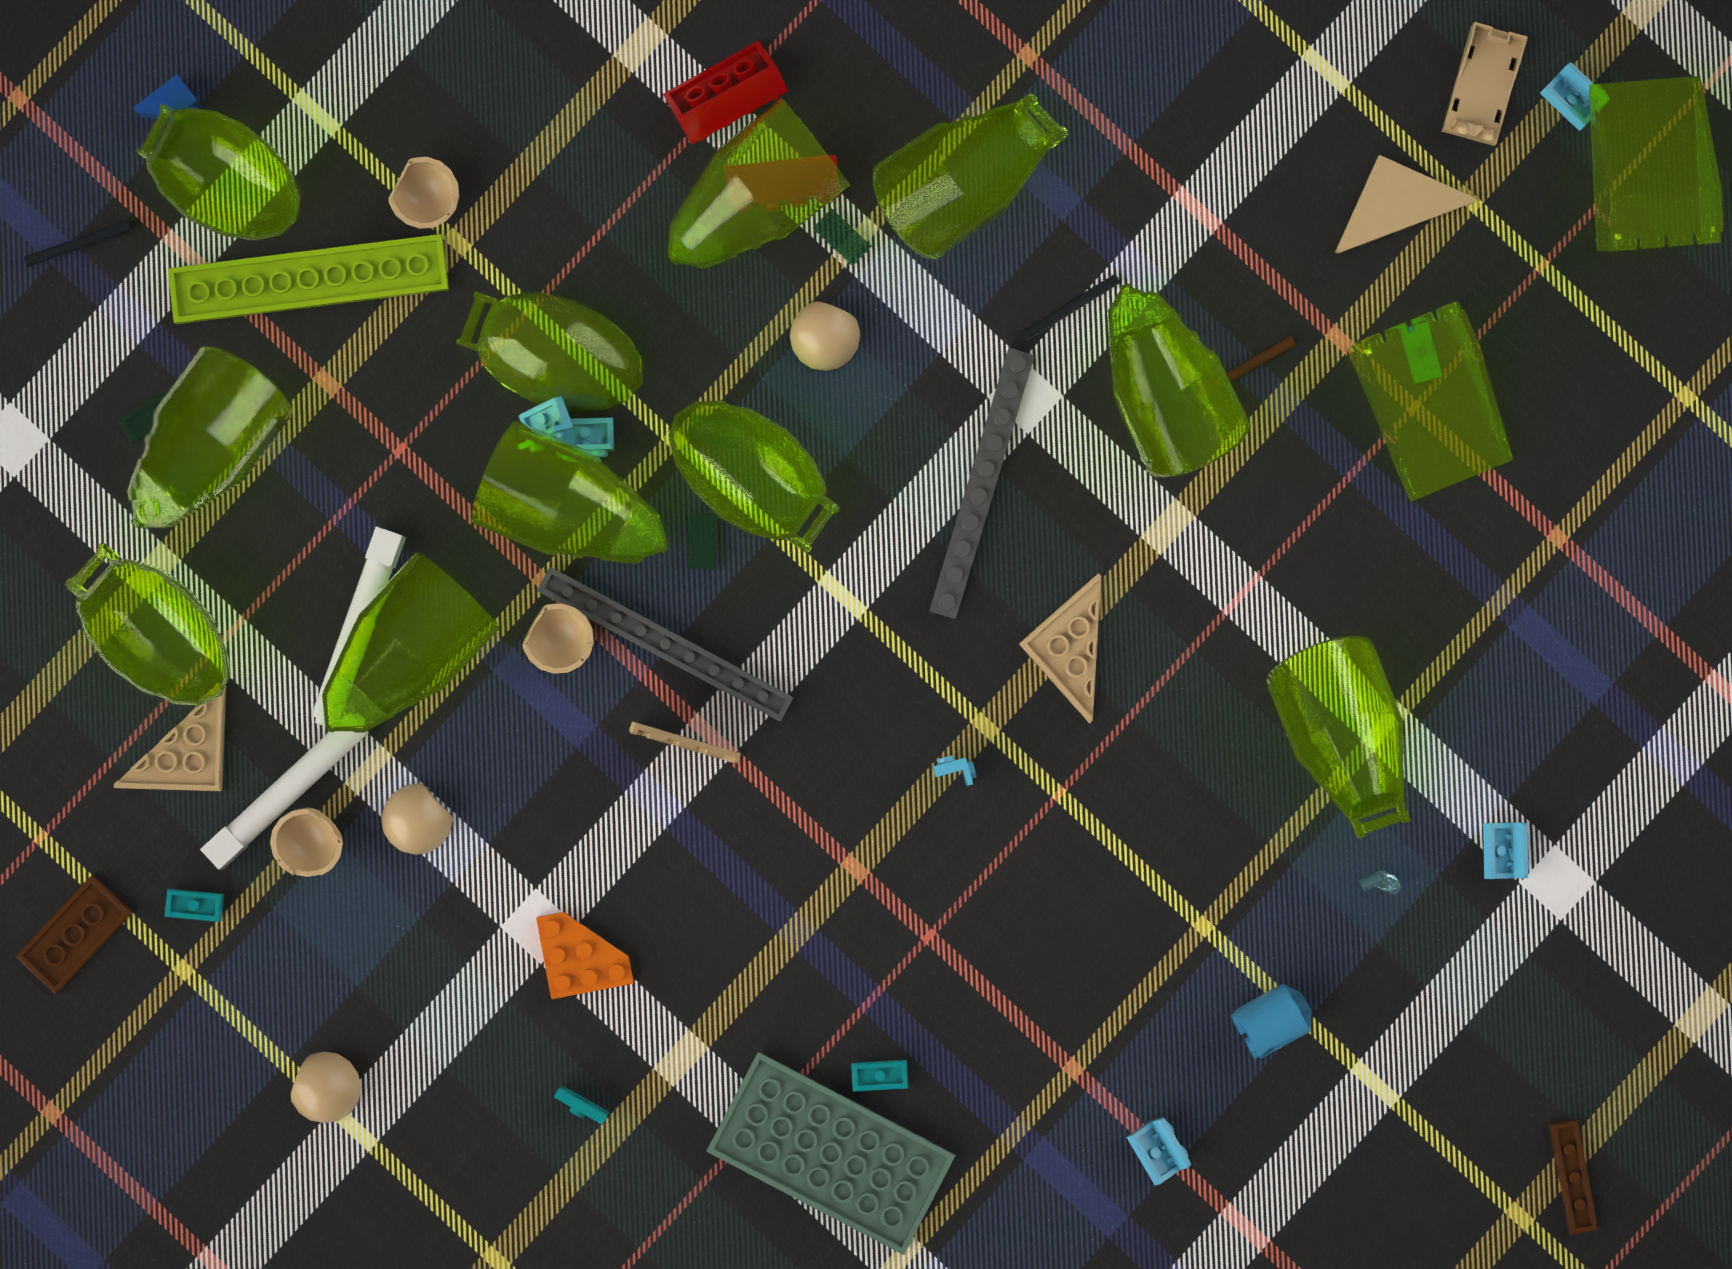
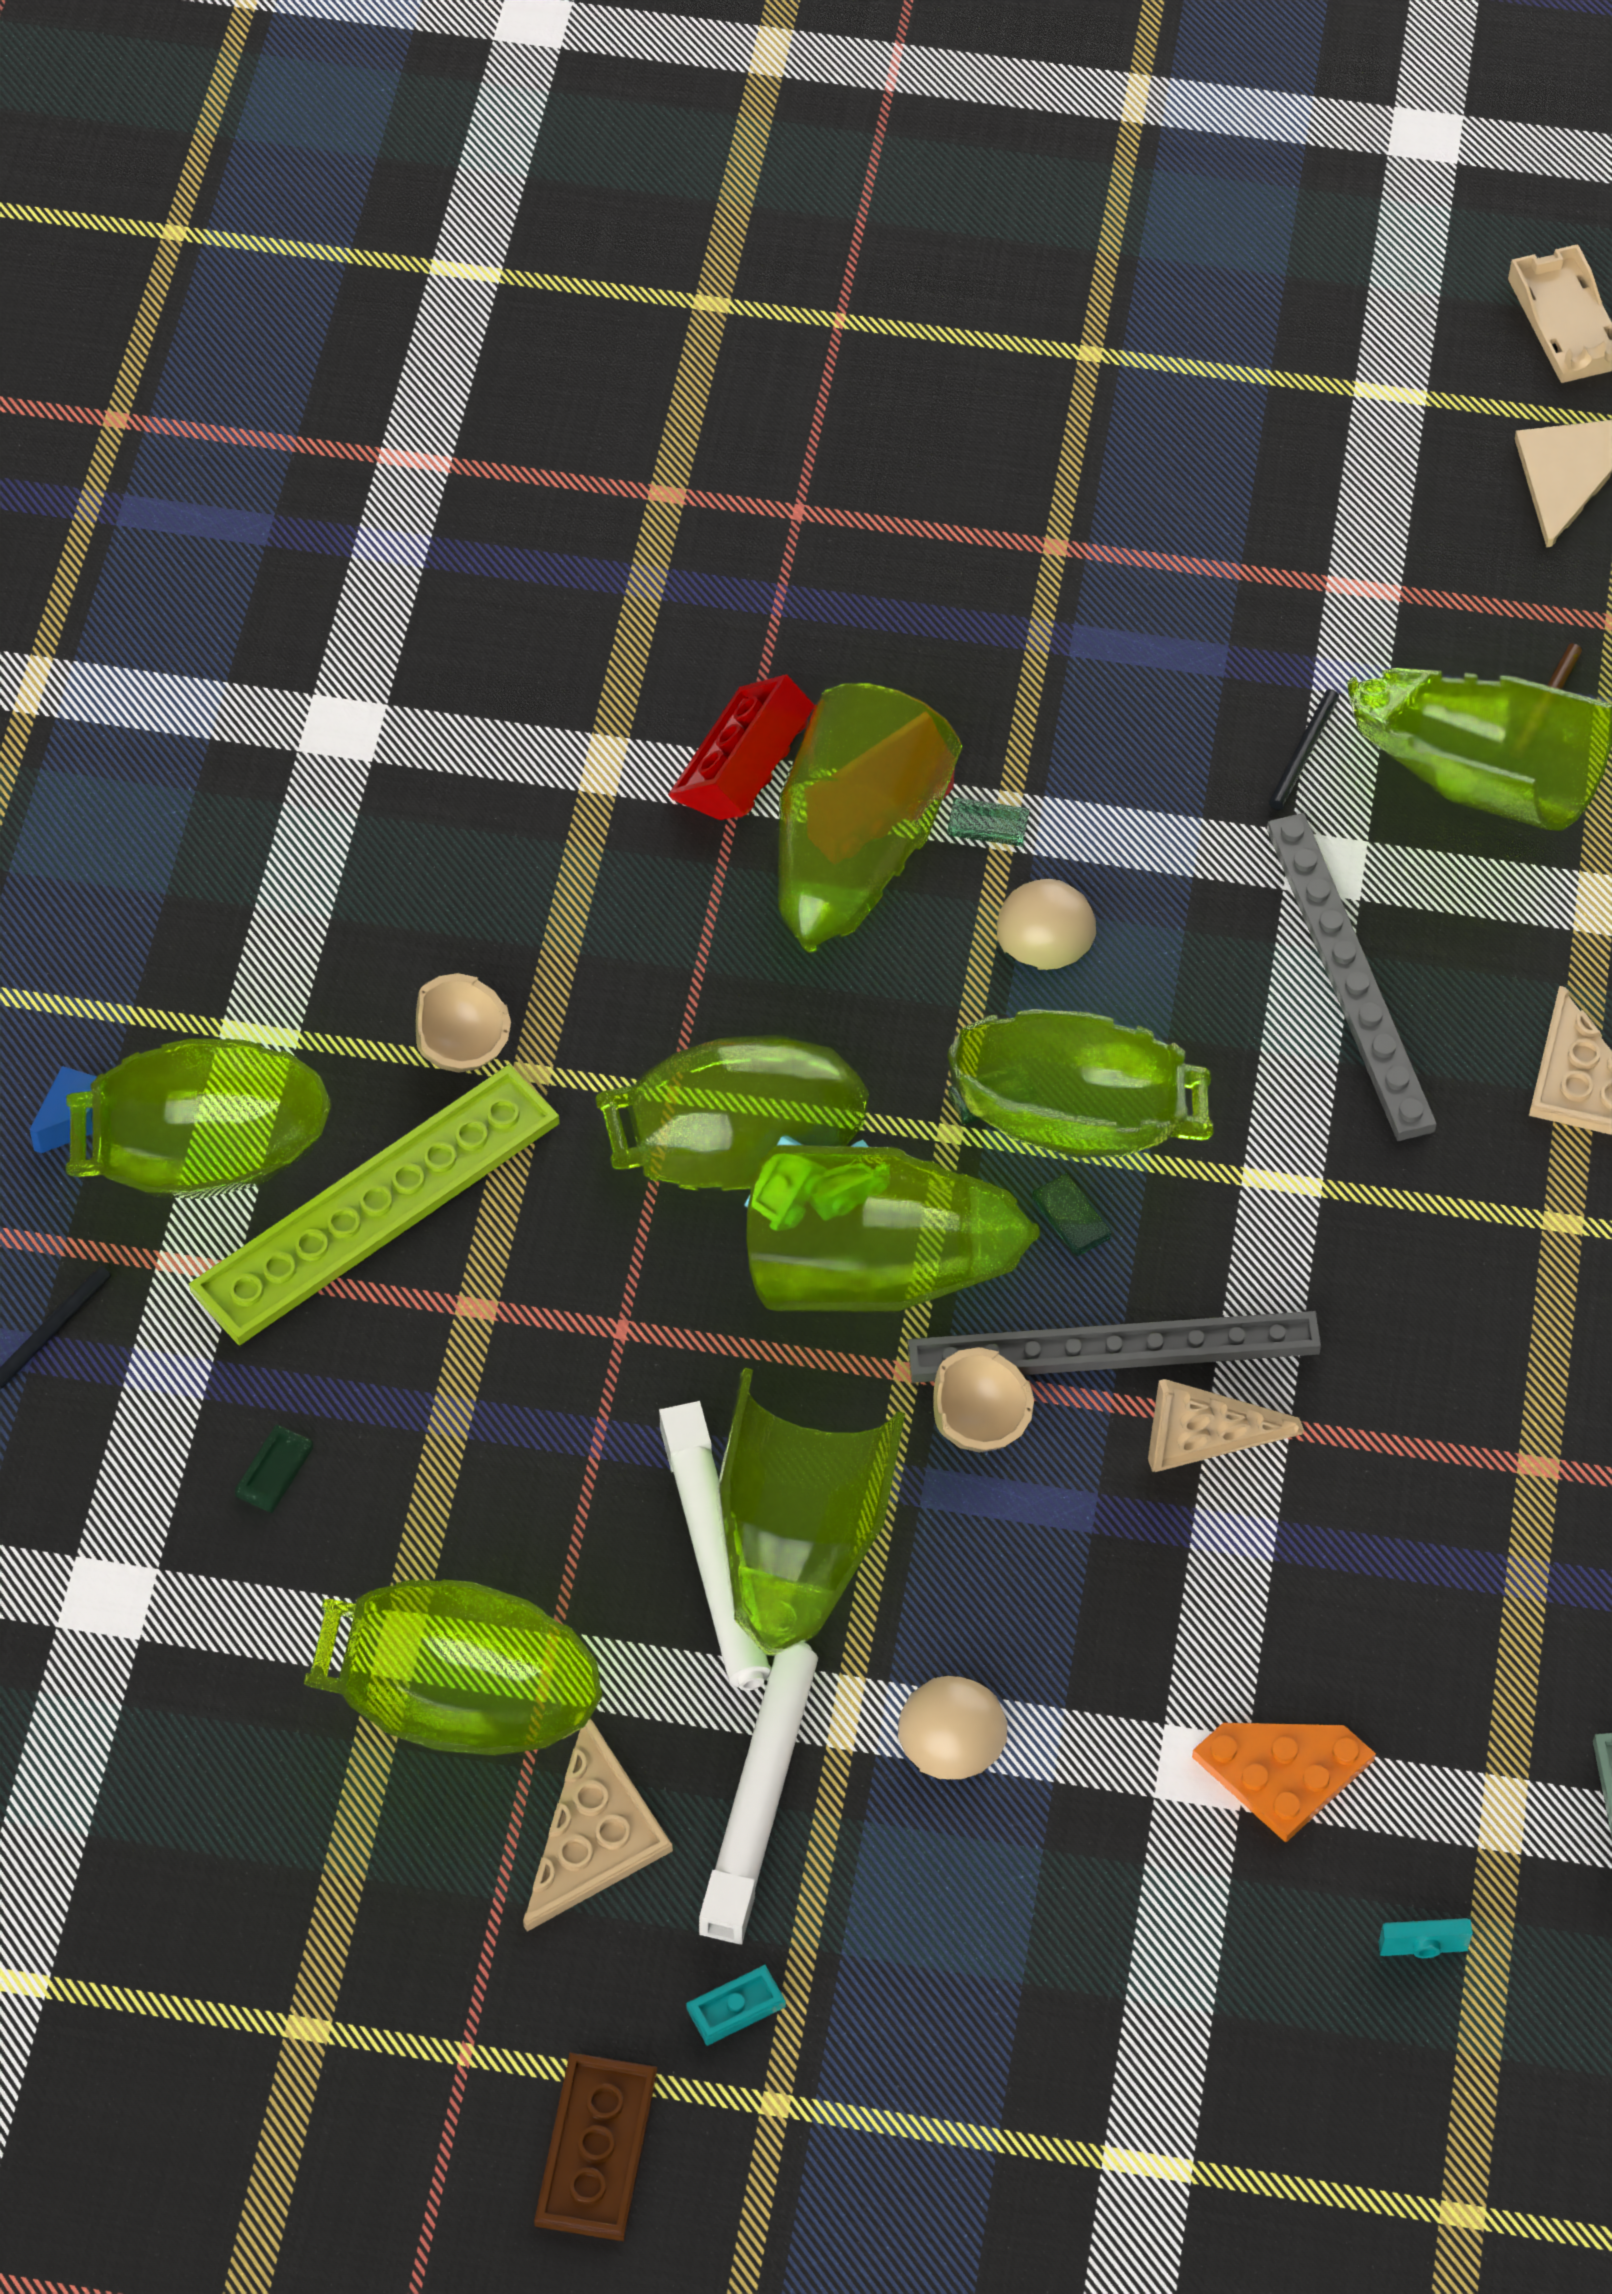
camera: 35 degrees left, 30 degrees down
(205, 437) = (372, 1430): clear neon green windscreen -> none
(306, 842) = (835, 1824): tan cylinder -> none
(326, 1087) = (1077, 2131): tan cylinder -> none
(949, 765) = (1575, 1262): medium azure bracket -> none
(962, 174) = (1080, 672): clear neon green windscreen -> none

